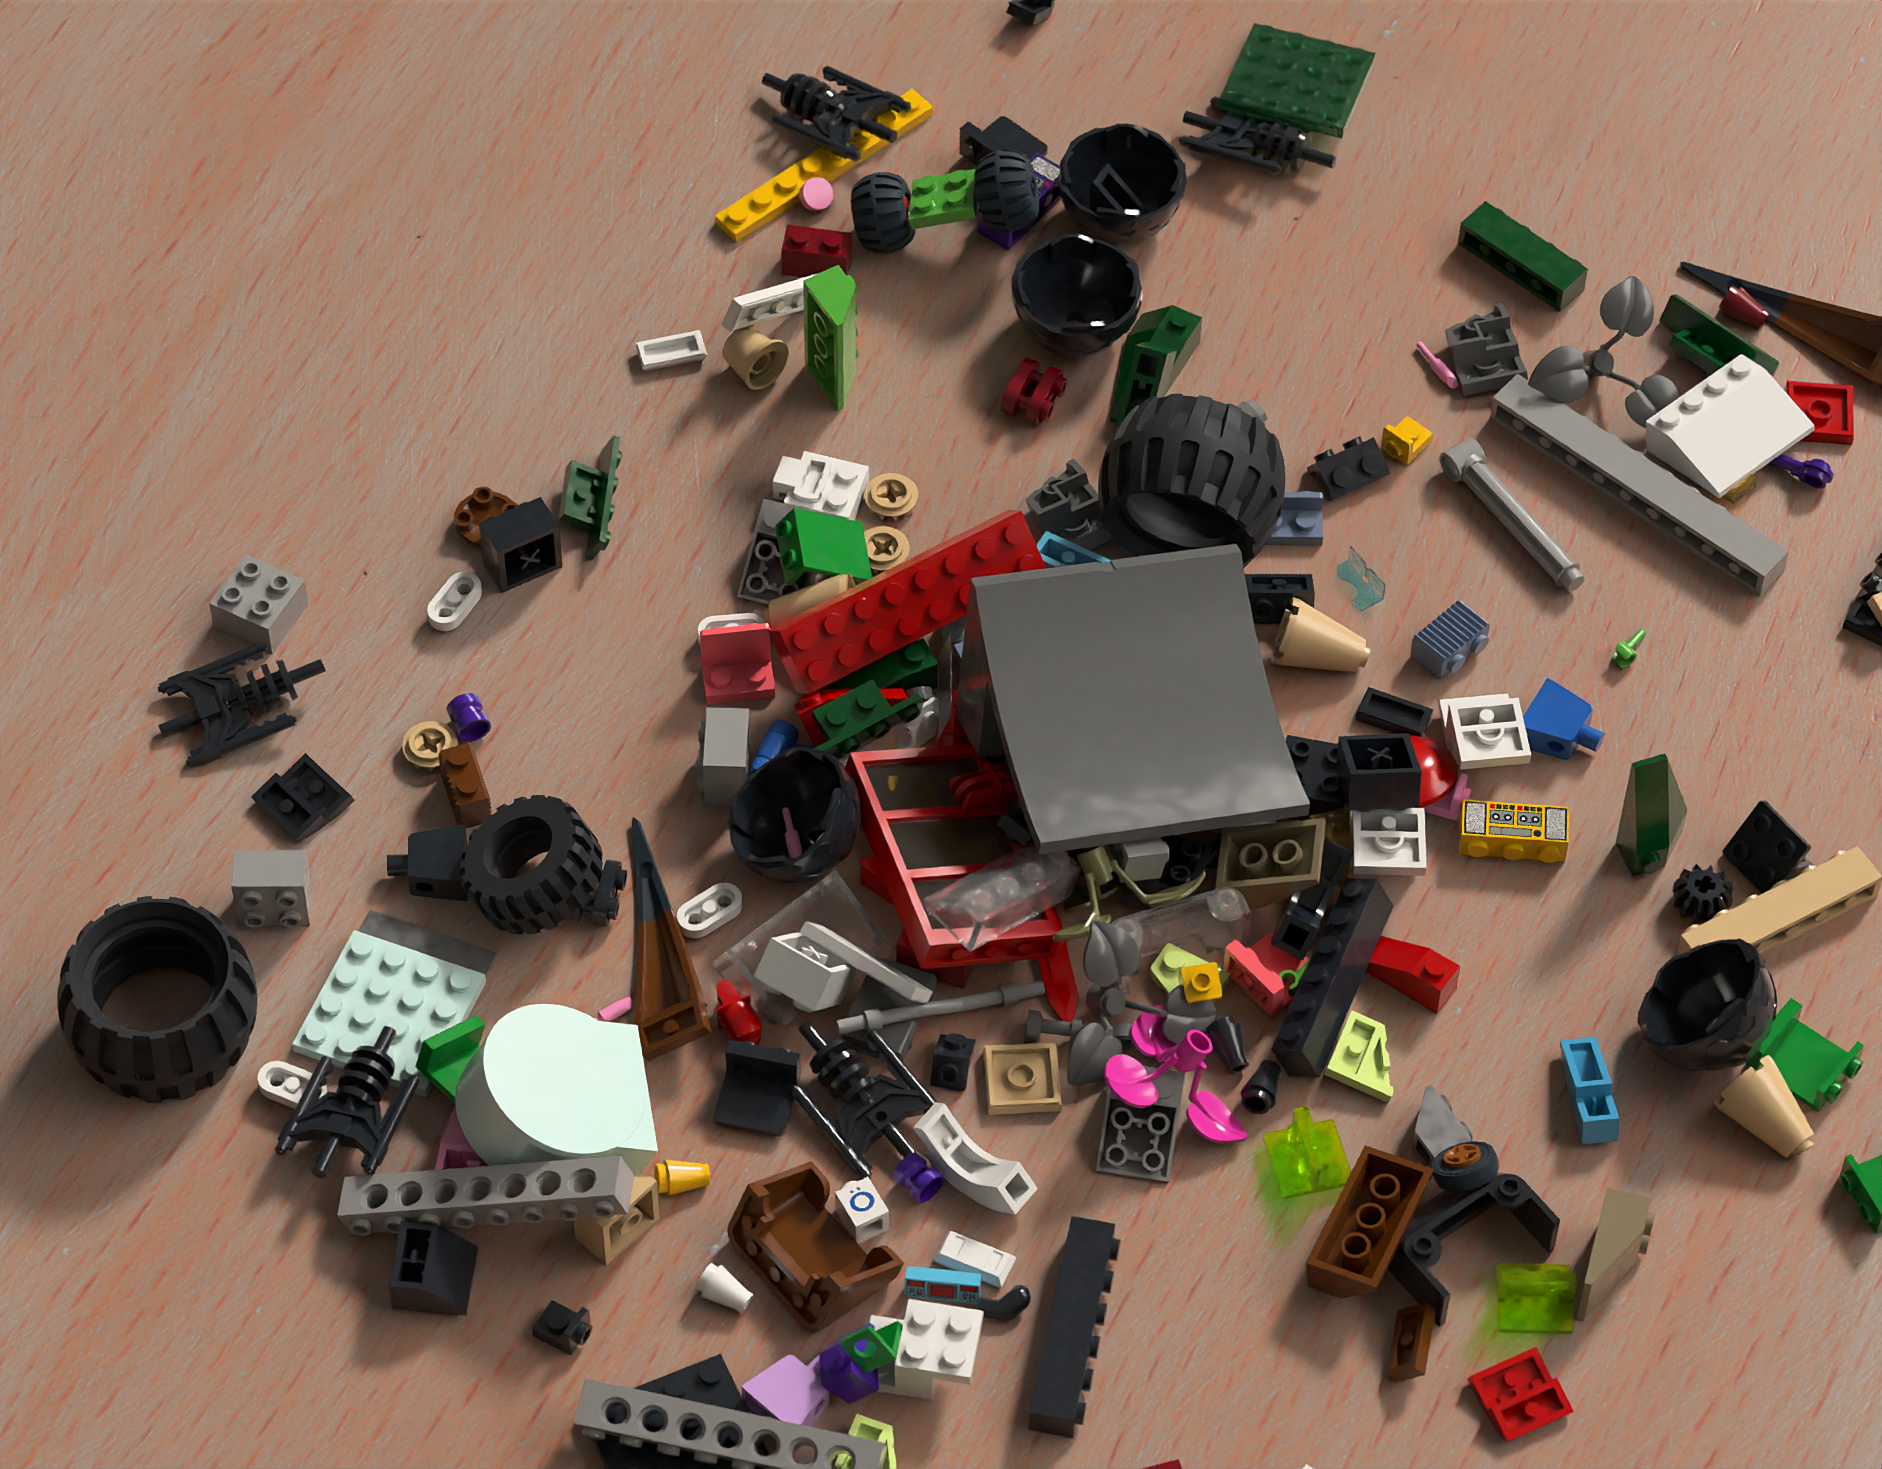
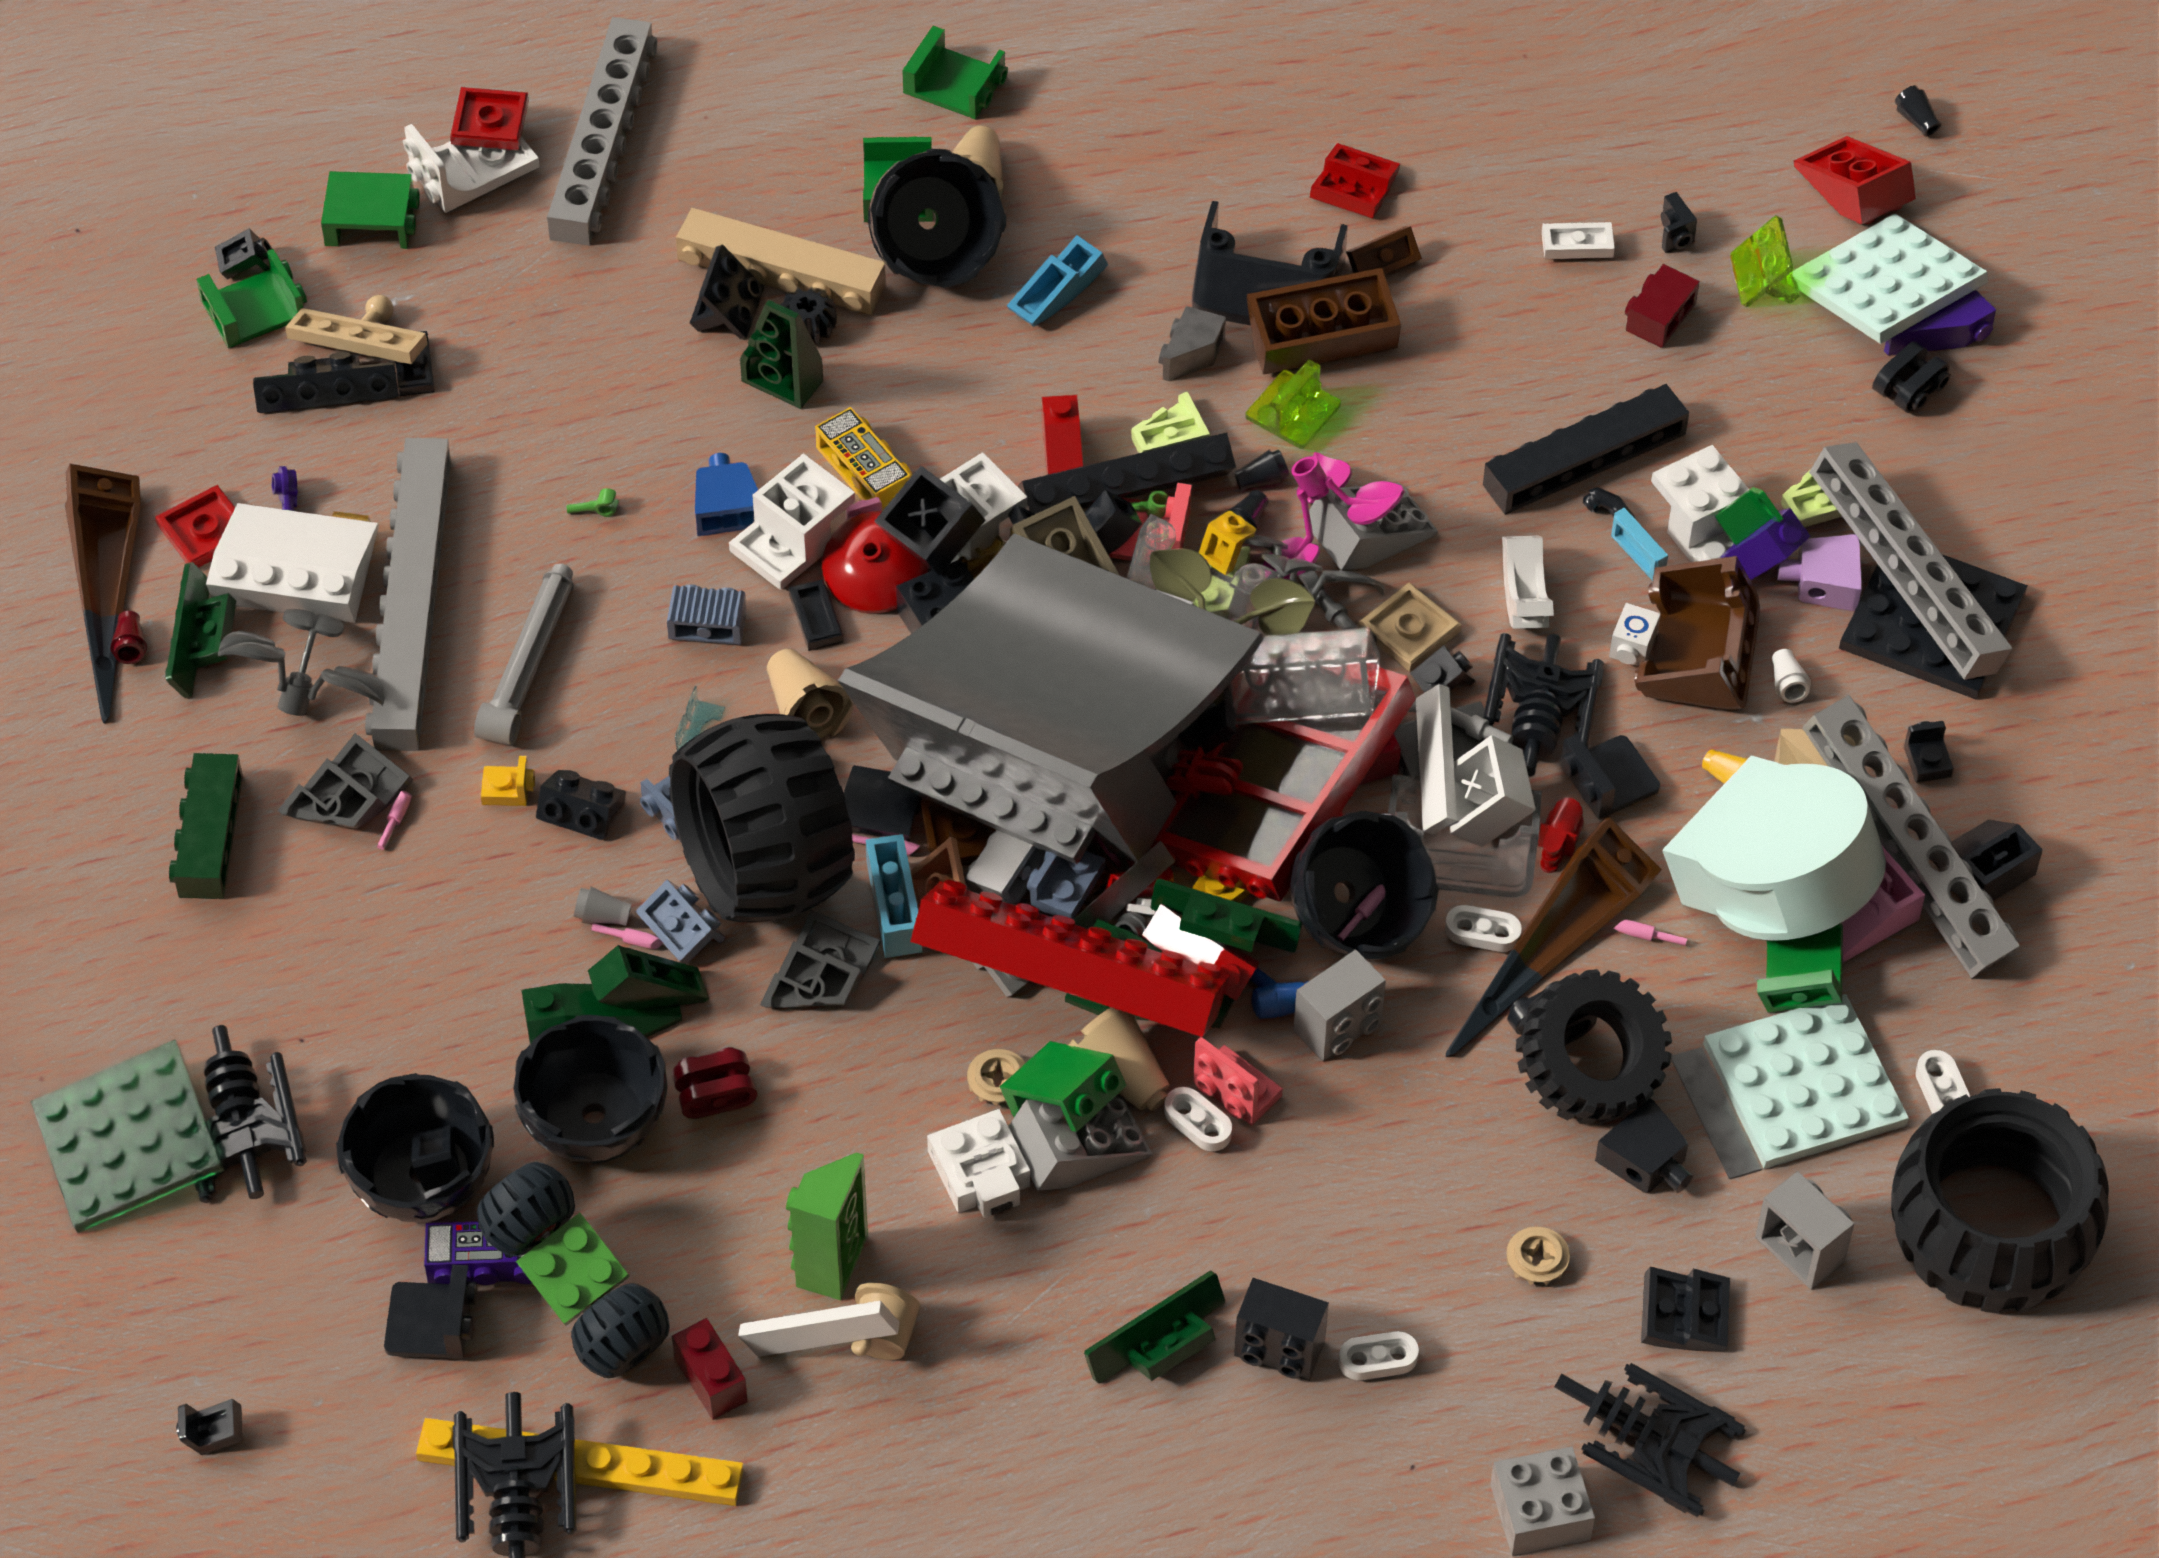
camera: 130 degrees left, 0 degrees up
(352, 1113) = (1933, 1006): black bar -> none
(464, 785) = (1554, 1185): reddish brown brick -> none
(469, 720) = (1483, 1245): dark purple wheel -> none
(477, 509) = (1265, 1404): reddish brown dish -> none
(671, 350) = (931, 1411): white tile -> none
(816, 194) = (630, 1431): bright pink tile -> none
(902, 489) = (931, 1098): tan gear -> none
(918, 1177) = (1570, 620): dark purple wheel -> none
(975, 1257) = (1590, 553): white tile -> none
(1465, 1166) = (1212, 275): black wheel -> none
(1535, 1298) = (1267, 212): clear neon green bracket -> none
(1620, 1236) = (1193, 173): dark tan slope -> none

